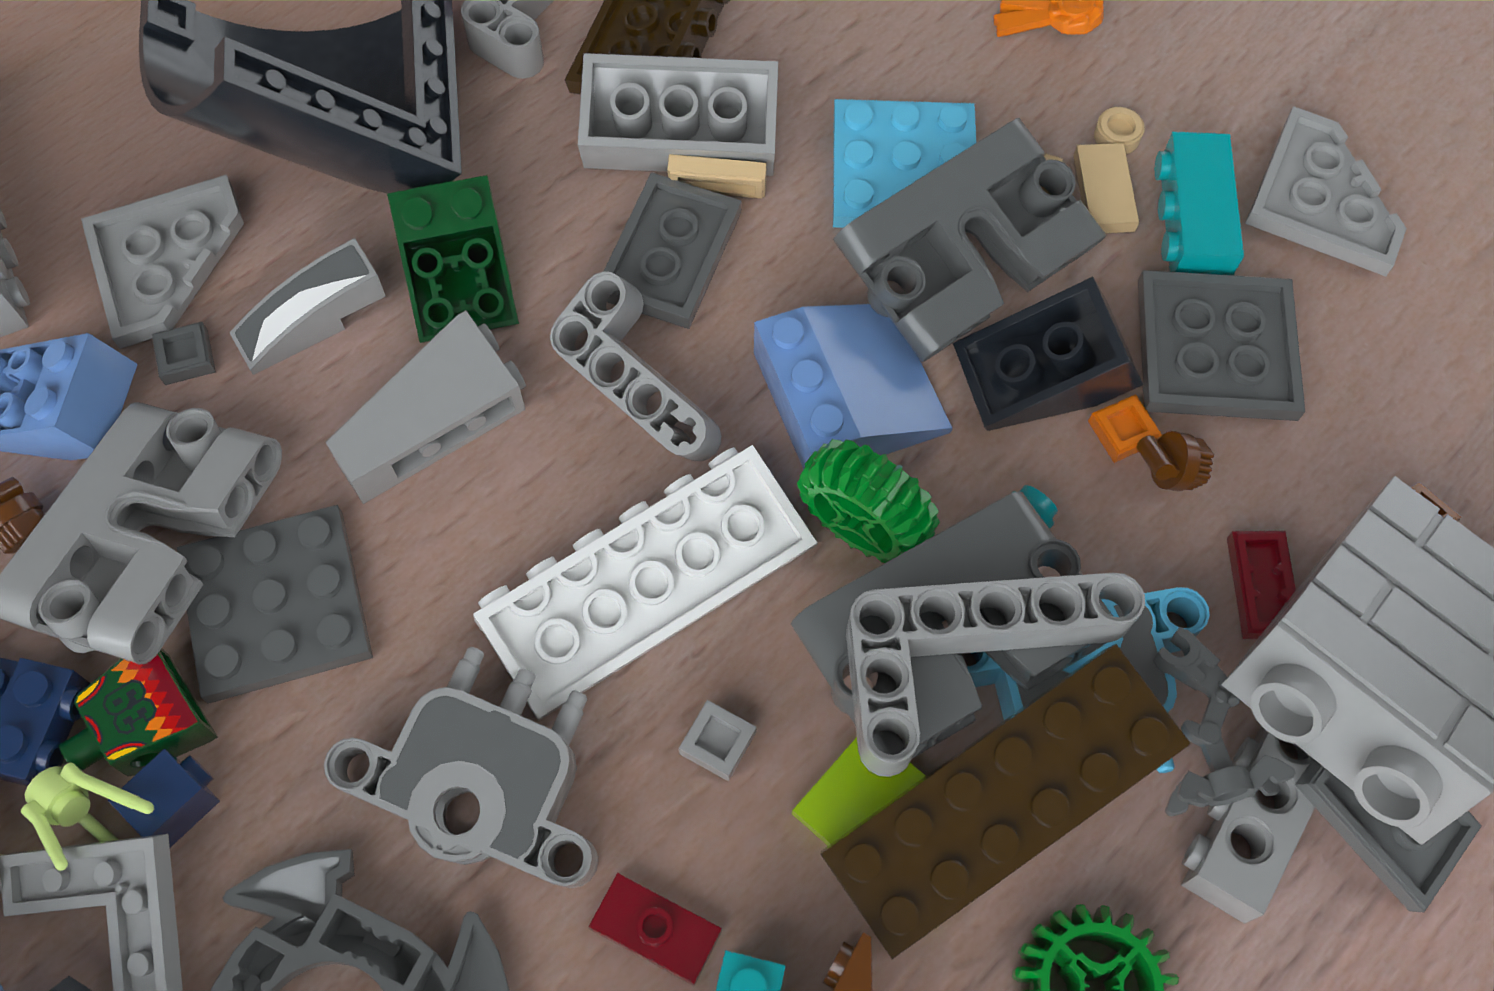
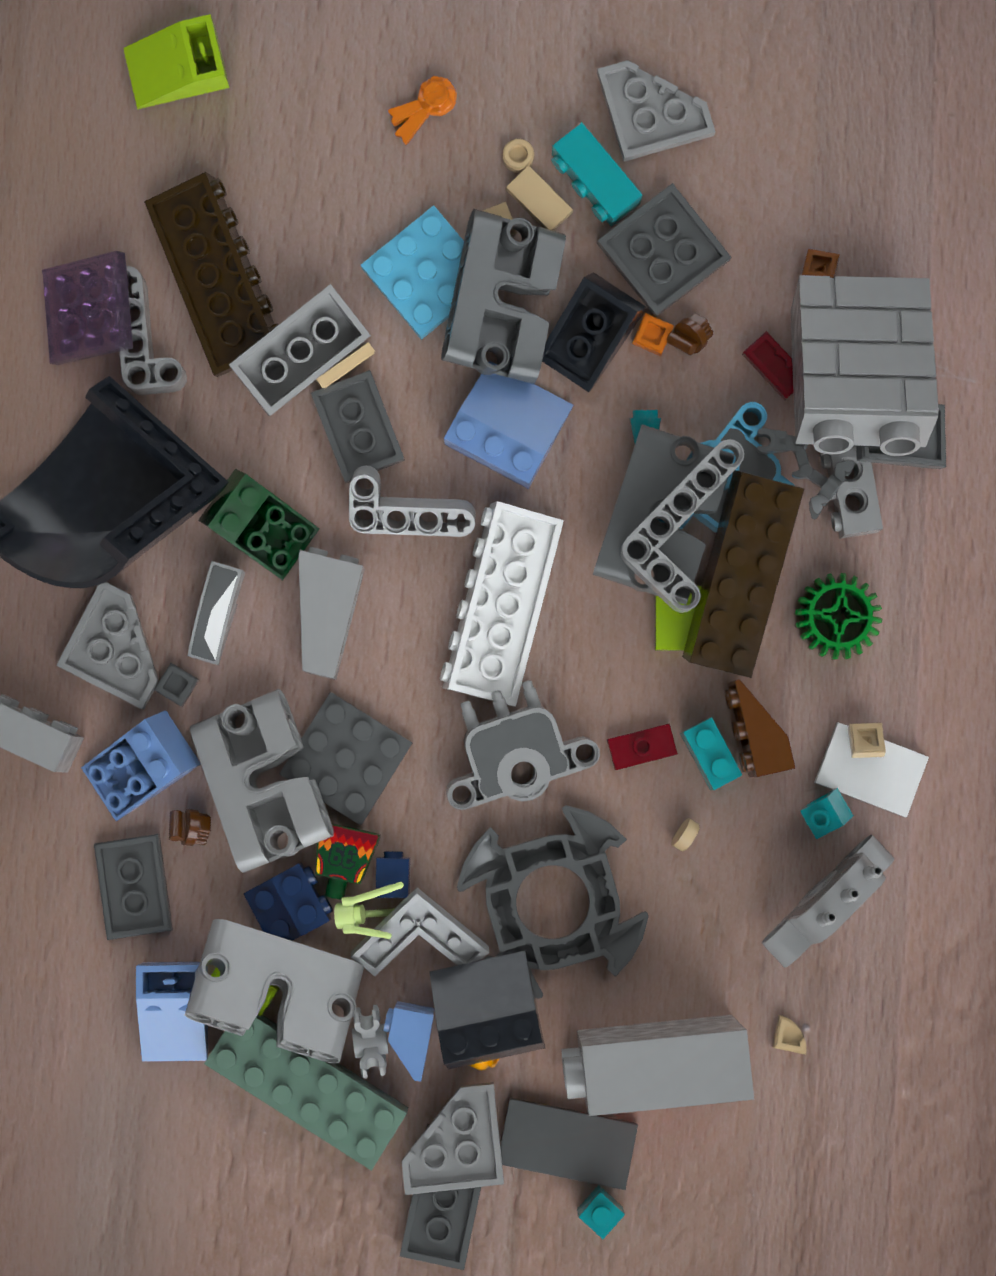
camera: 40 degrees left, 20 degrees up
(717, 740) = (599, 648): light grey plate -> none
(867, 500) = (574, 485): green gear -> none

